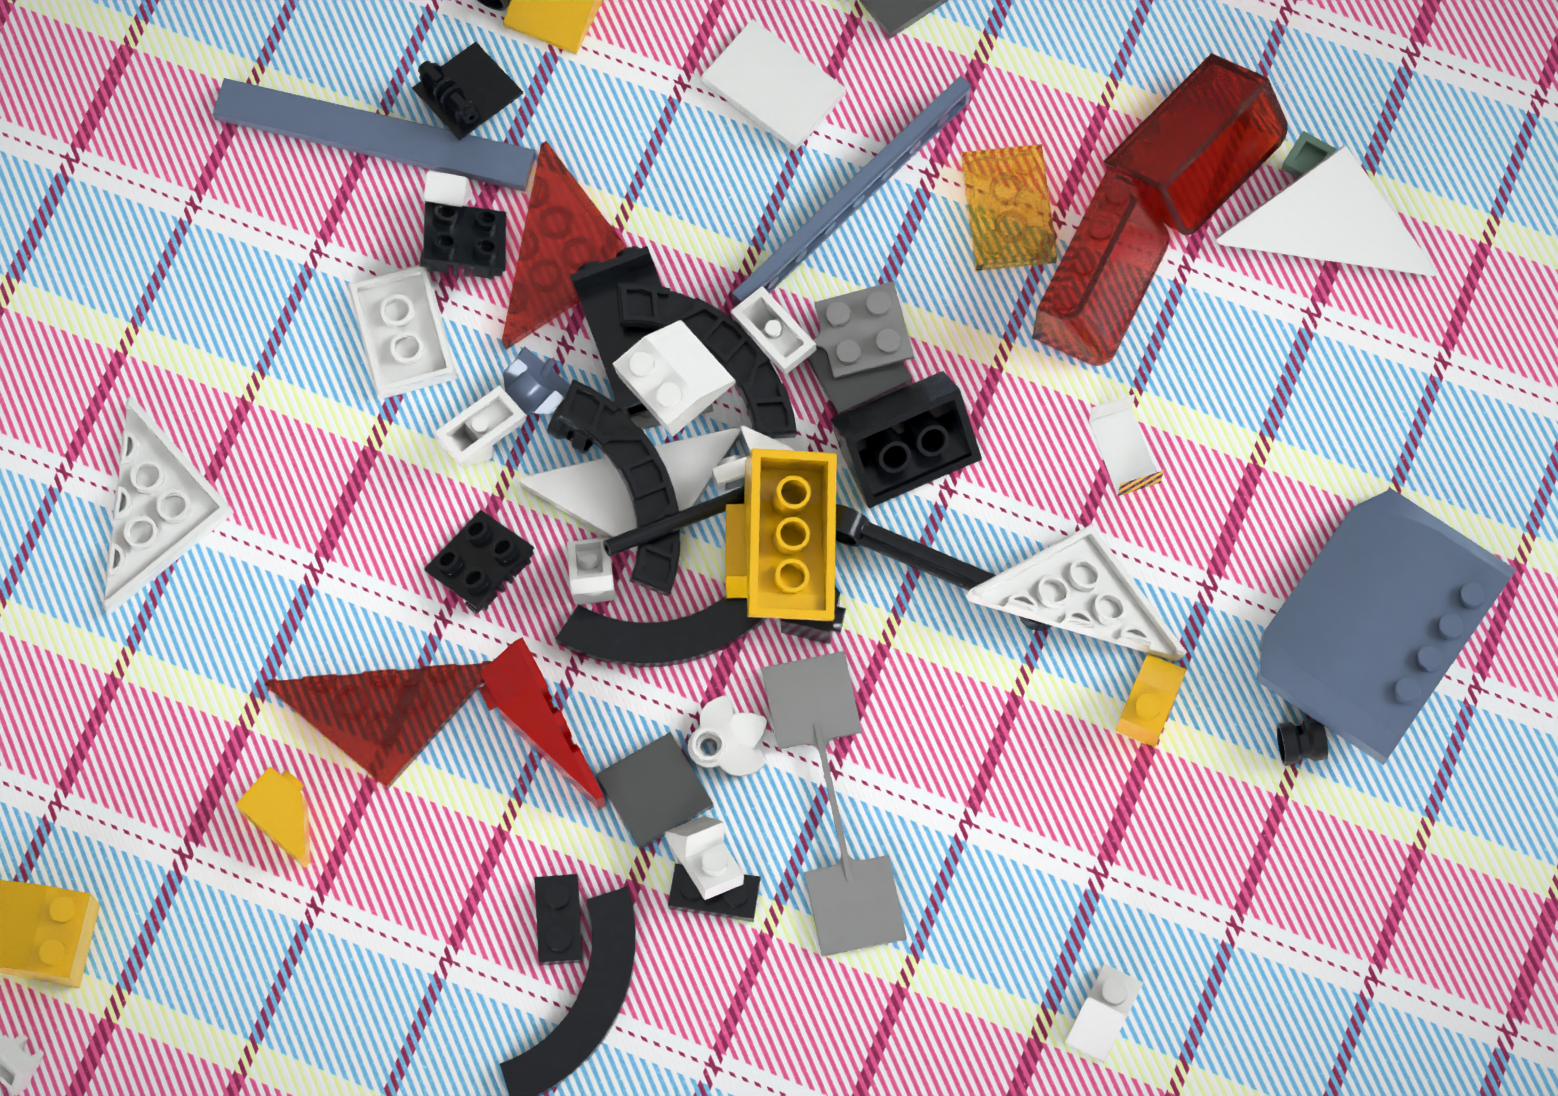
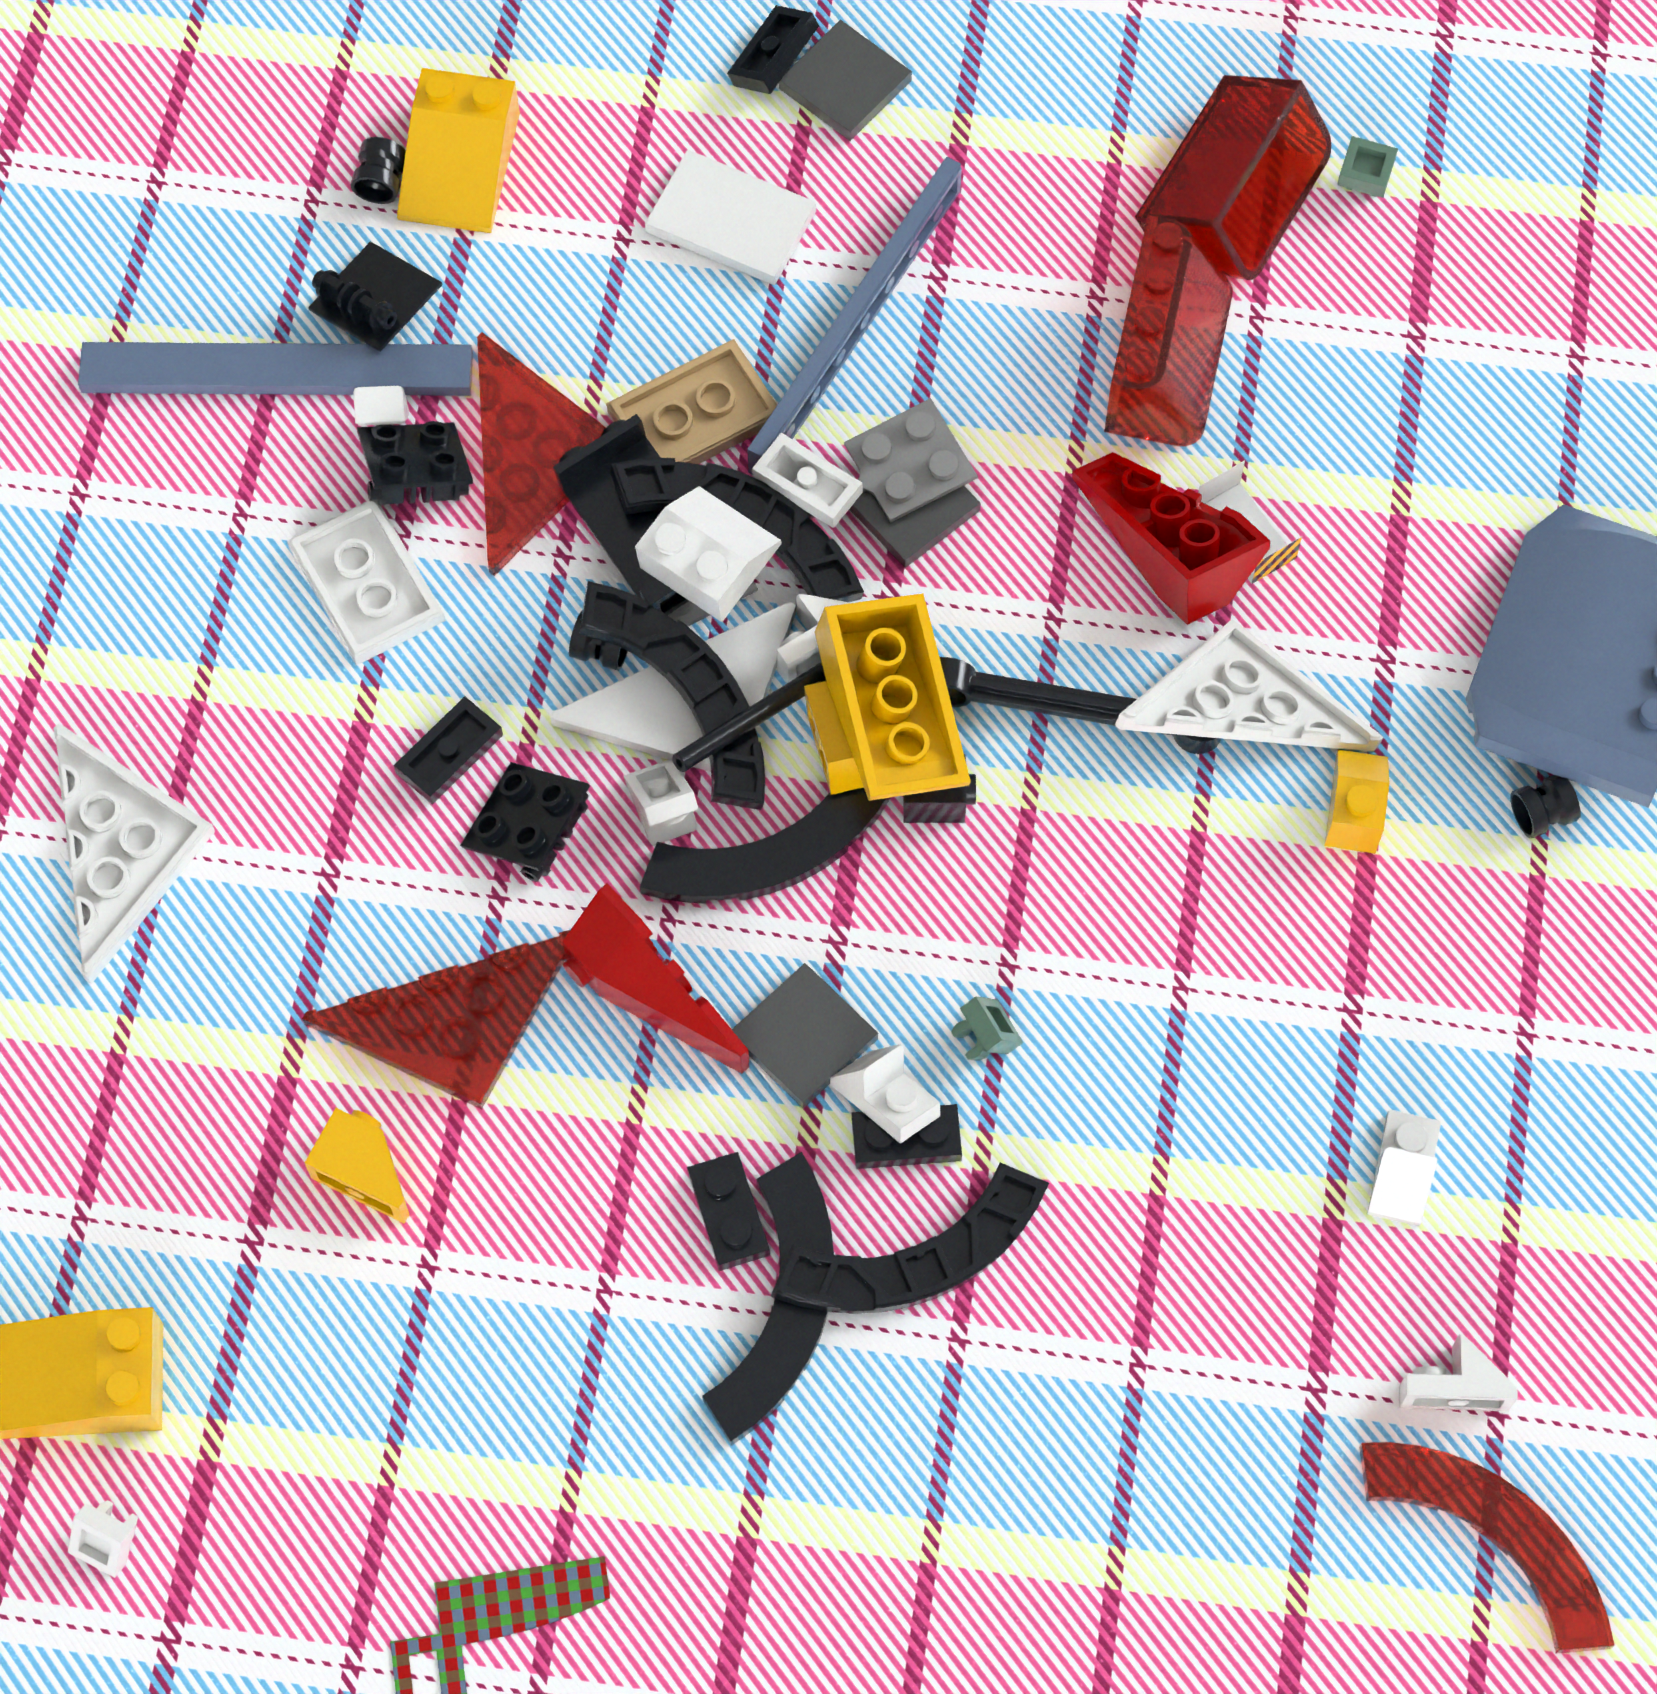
camera: 15 degrees left, 5 degrees down
(431, 490) = (448, 750): none -> black plate
(476, 429) = (489, 663): white slope -> none
(534, 384) = (538, 605): sand blue piece -> none
(700, 1004) = (921, 1271): none -> black tile
(704, 244) = (699, 405): none -> tan tile
(733, 735) = (879, 951): white plate -> none
(803, 820) = (991, 1026): none -> sand green tile
(855, 899) = (1073, 1104): light grey hinge -> none
(906, 438) = (994, 569): black slope -> none
(1008, 207) = (1038, 294): clear yellow plate -> none
(1064, 449) = (1179, 544): none -> red wedge
(1331, 217) = (1412, 222): white tile -> none

